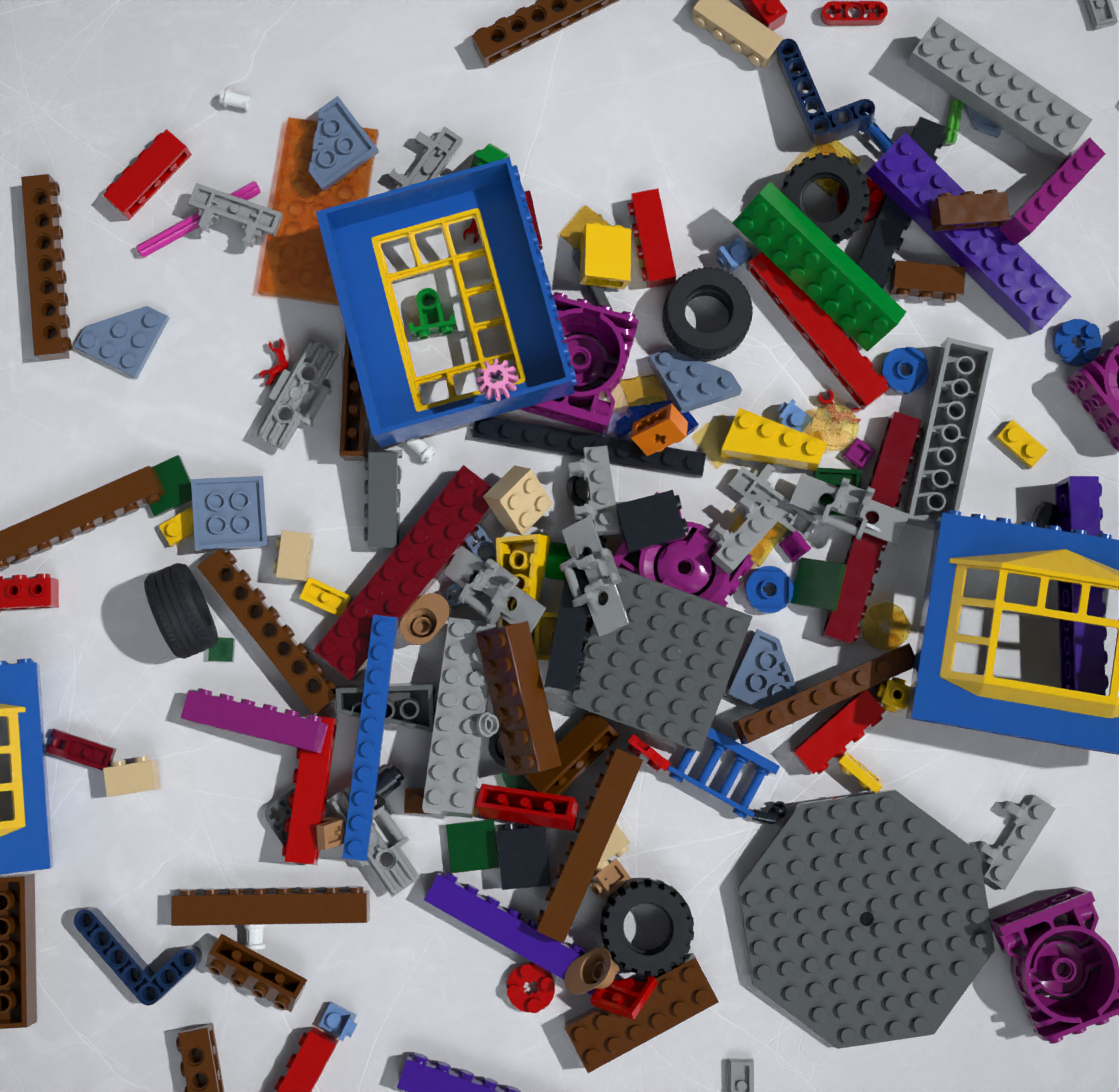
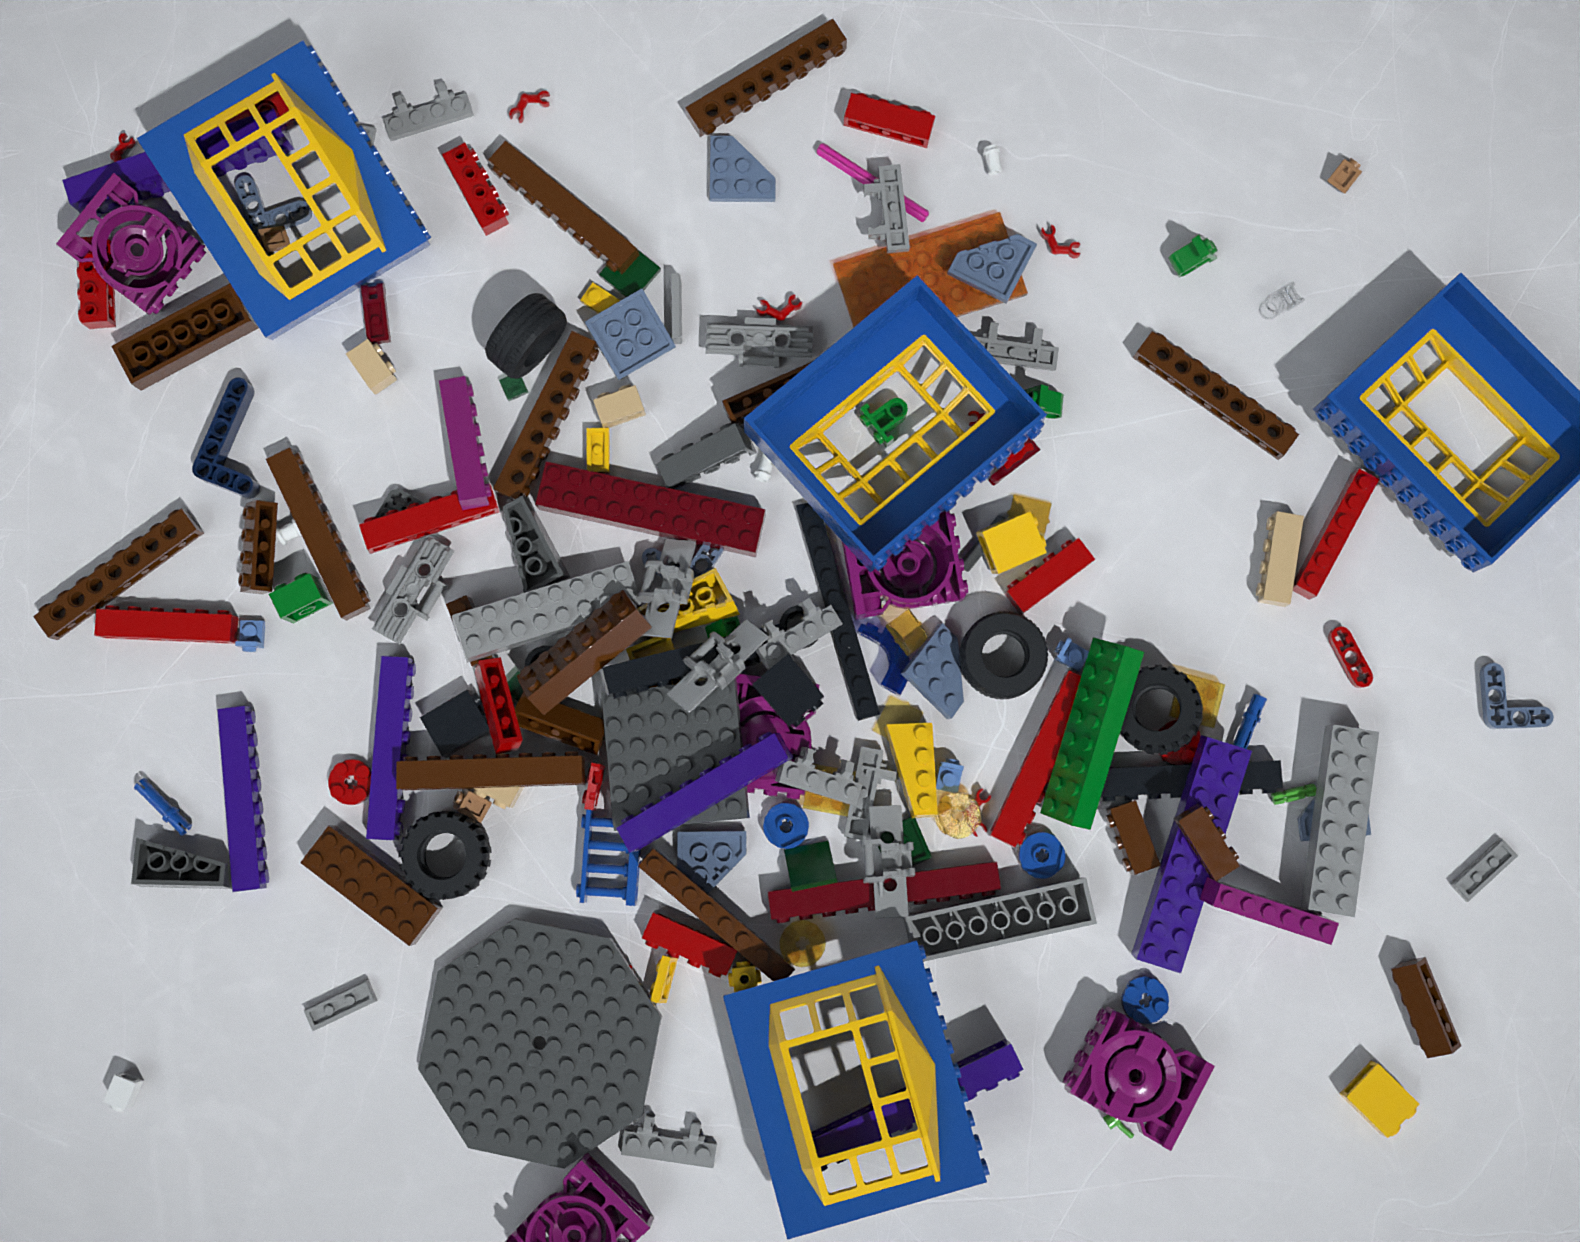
camera: 65 degrees right, 0 degrees up
(226, 457) = (676, 288): none -> light grey tile
(327, 954) = (300, 598): none -> green brick
(330, 833) = (399, 551): medium nougat bracket -> none
(345, 85) = (1059, 249): none -> red arm
(370, 738) = (494, 544): blue plate -> none
(388, 780) = (466, 577): black brick -> none
(424, 619) = (617, 541): medium nougat piece -> none
(472, 846) = (446, 675): dark green tile -> none
(487, 724) = (550, 640): light grey plate -> none
(500, 387) = (832, 501): bright pink gear -> none
(518, 500) = (756, 570): tan brick -> none
(591, 971) = (384, 824): medium nougat piece -> none
(624, 996) = (376, 862): red wing -> none
(659, 429) = (876, 662): orange brick -> none
(710, 645) = (704, 792): none -> dark purple brick
(772, 814) = (590, 919): black arm -> none
(794, 546) = (834, 830): magenta tile -> none
(812, 100) = (1245, 656): dark blue beam -> none
(859, 453) = (946, 849): magenta tile -> none
(1021, 444) = (1026, 990): yellow plate -> none
(1045, 514) = (967, 1042): black brick -> none

